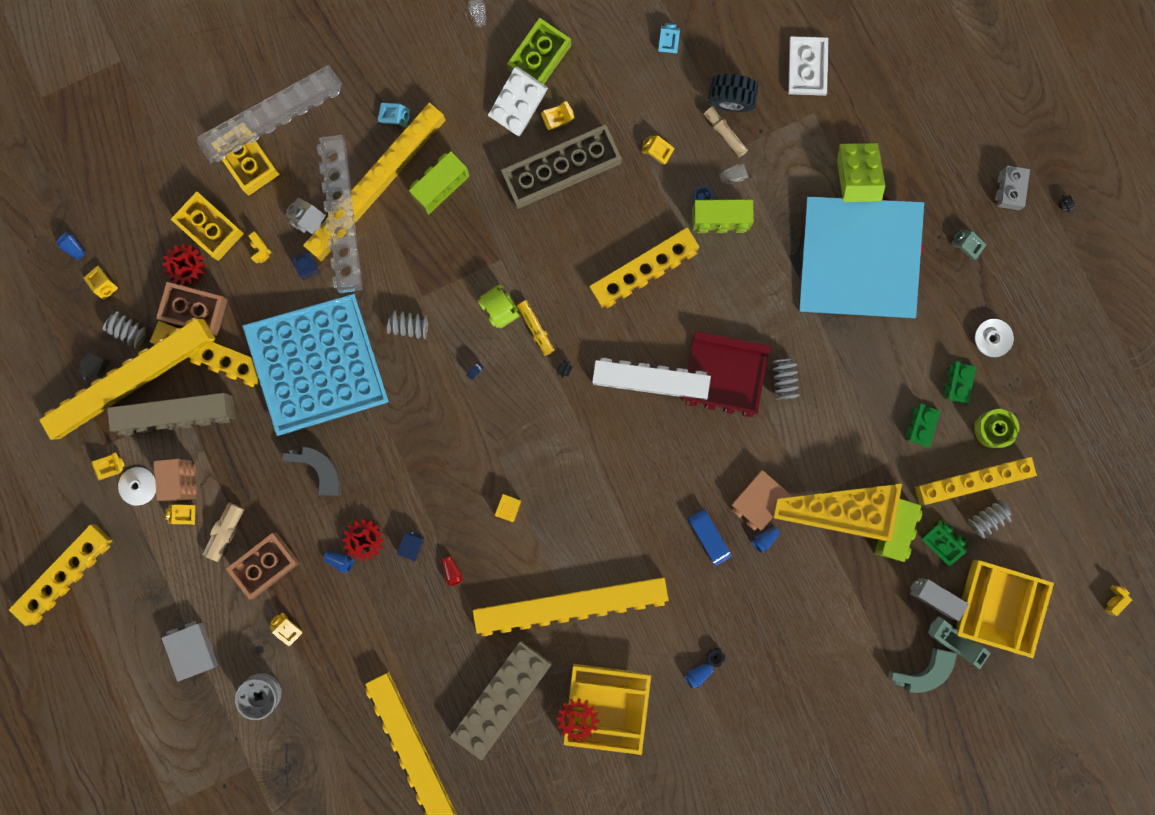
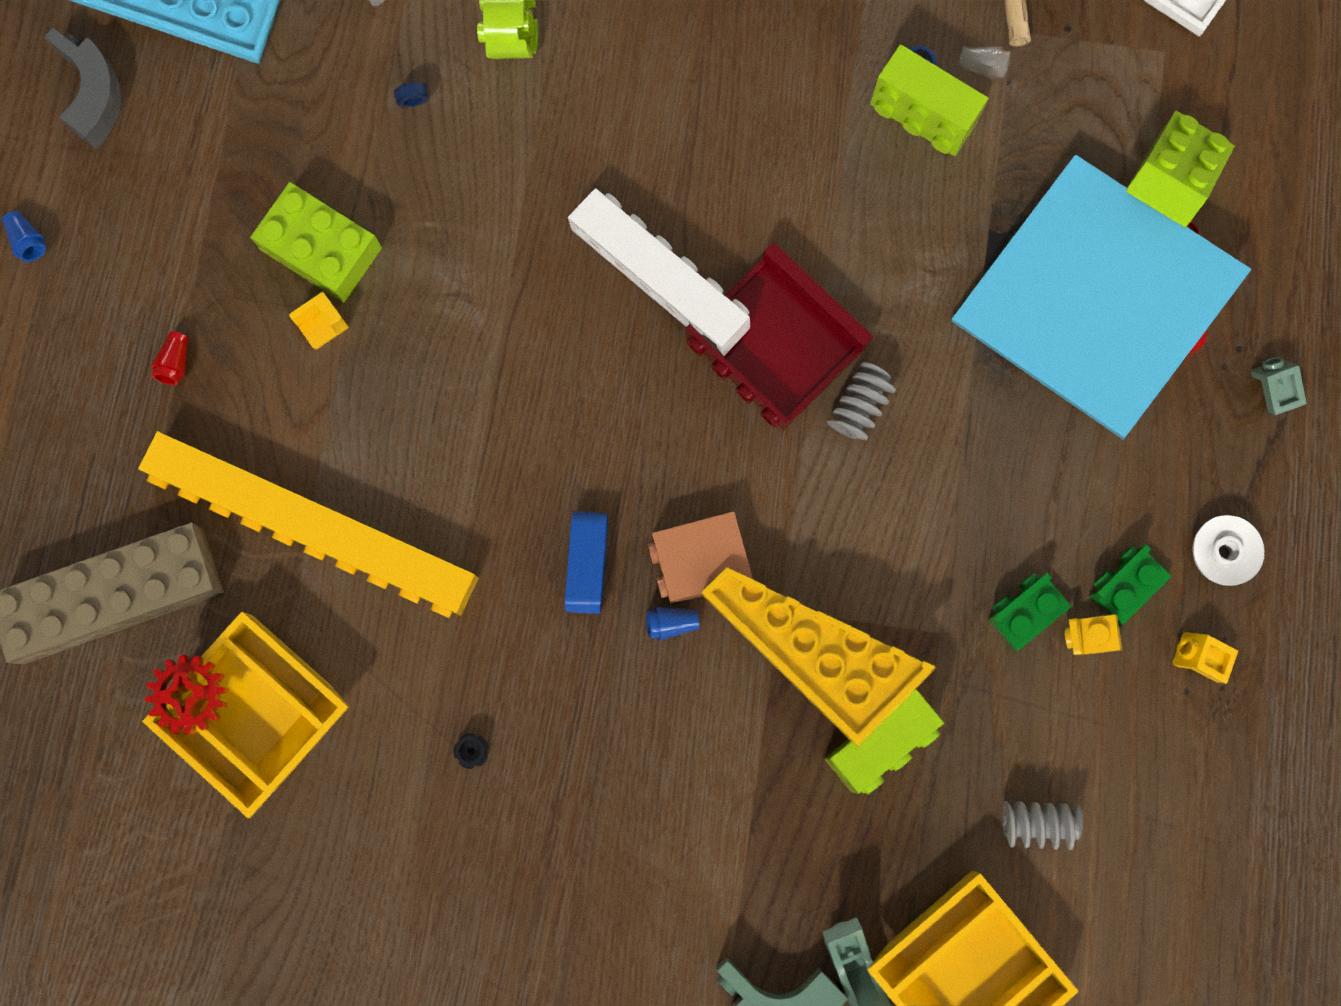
camera: 35 degrees right, 5 degrees down
(358, 551) = (64, 232): red gear -> none
(411, 545) = (140, 282): dark blue brick -> none
(481, 472) = (316, 242): none -> lime brick
(535, 327) = (541, 104): yellow pin -> none
(564, 369) = (543, 176): black plate -> none
(683, 239) = (776, 97): yellow brick -> none
(698, 675) = (426, 760): blue cone -> none
(938, 598) = (876, 892): light grey brick -> none
(945, 542) = (946, 814): green bracket -> none
(958, 417) = (1093, 635): none -> yellow bracket
(975, 481) = (1057, 750): yellow brick -> none
(1007, 431) = (1157, 675): lime brick -> none
(1014, 393) = (1205, 656): none -> yellow bracket

